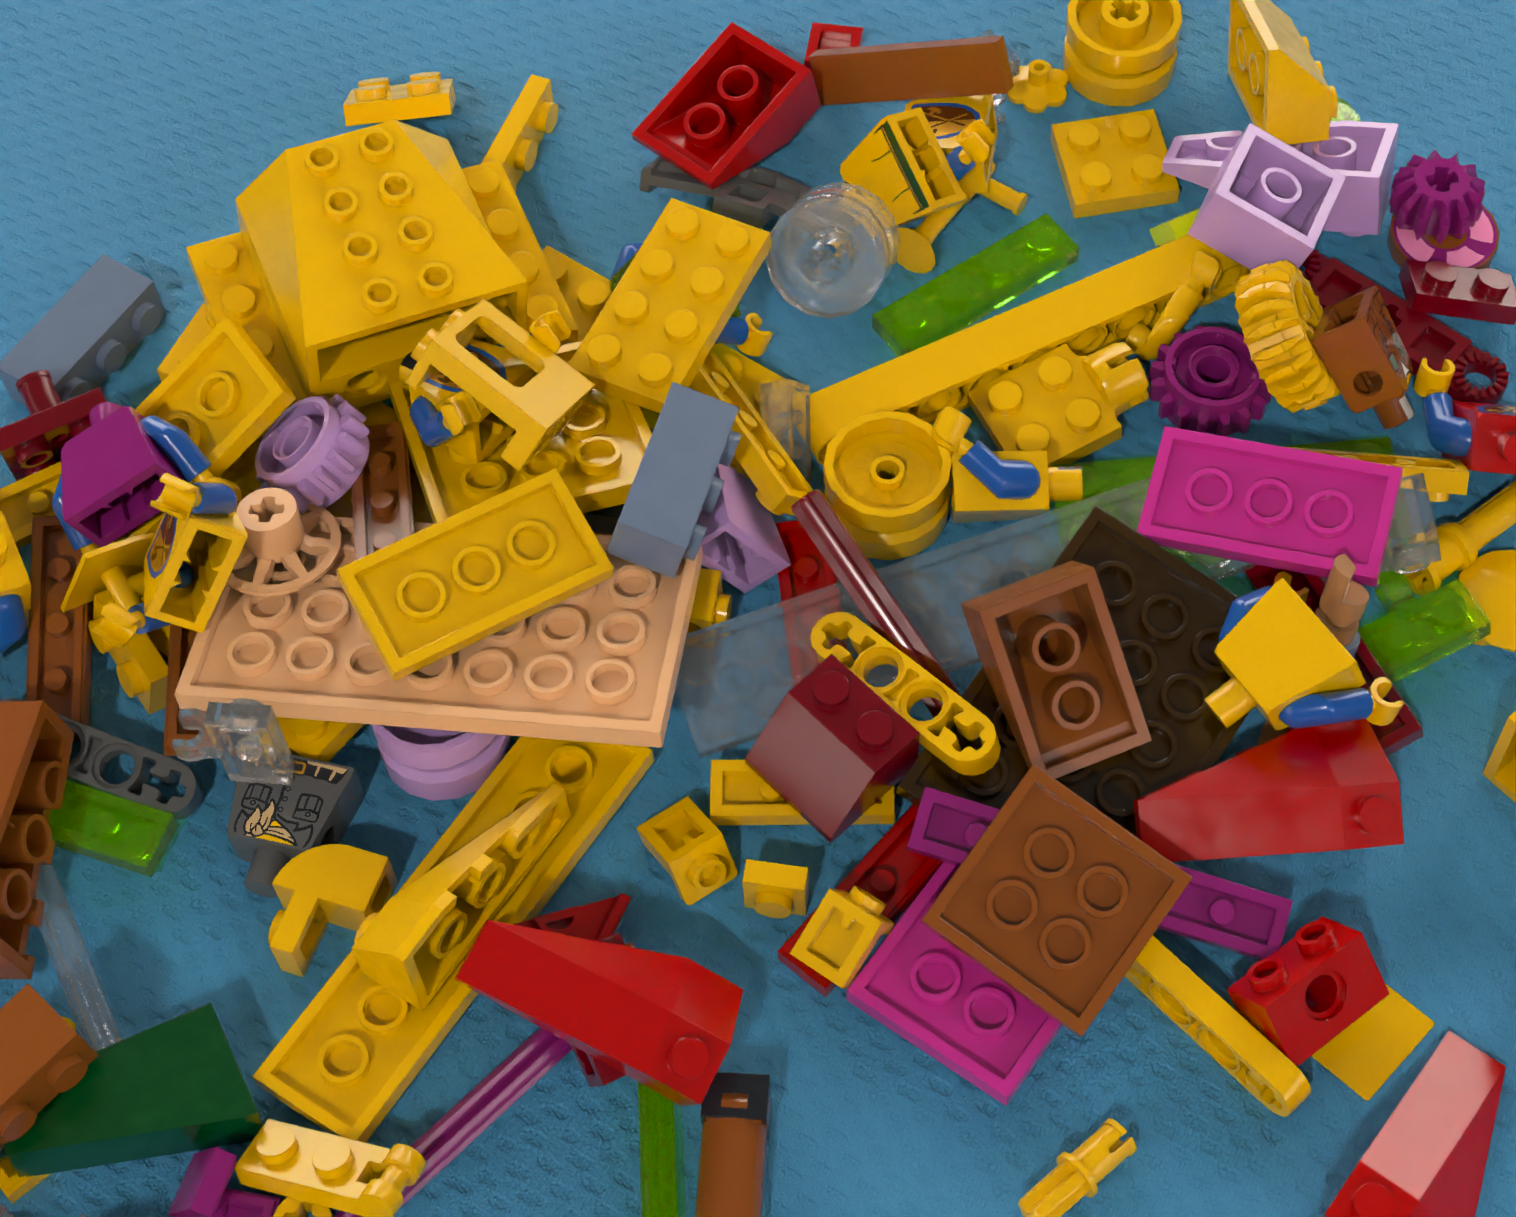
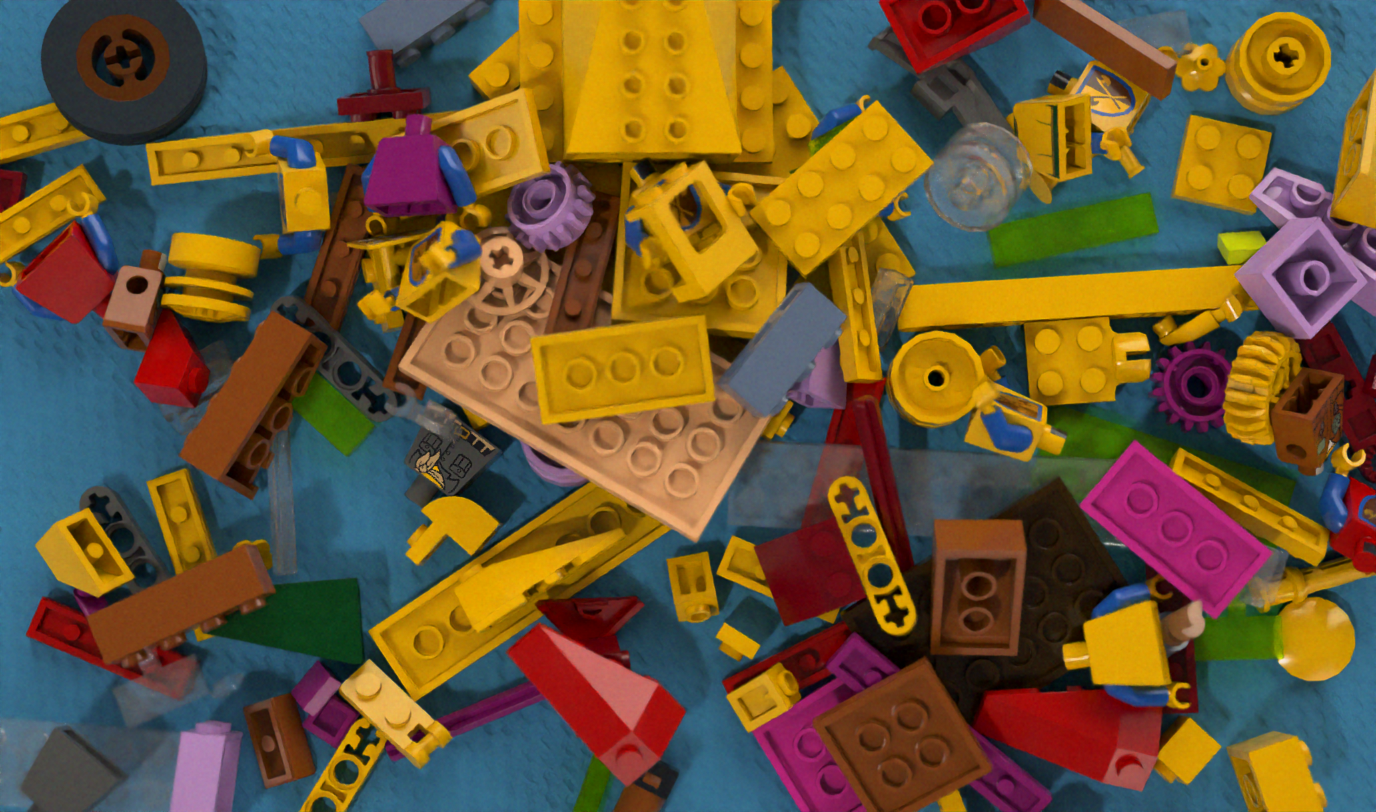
camera: 20 degrees right, 25 degrees up
(1432, 785) = (1184, 751): none -> yellow brick

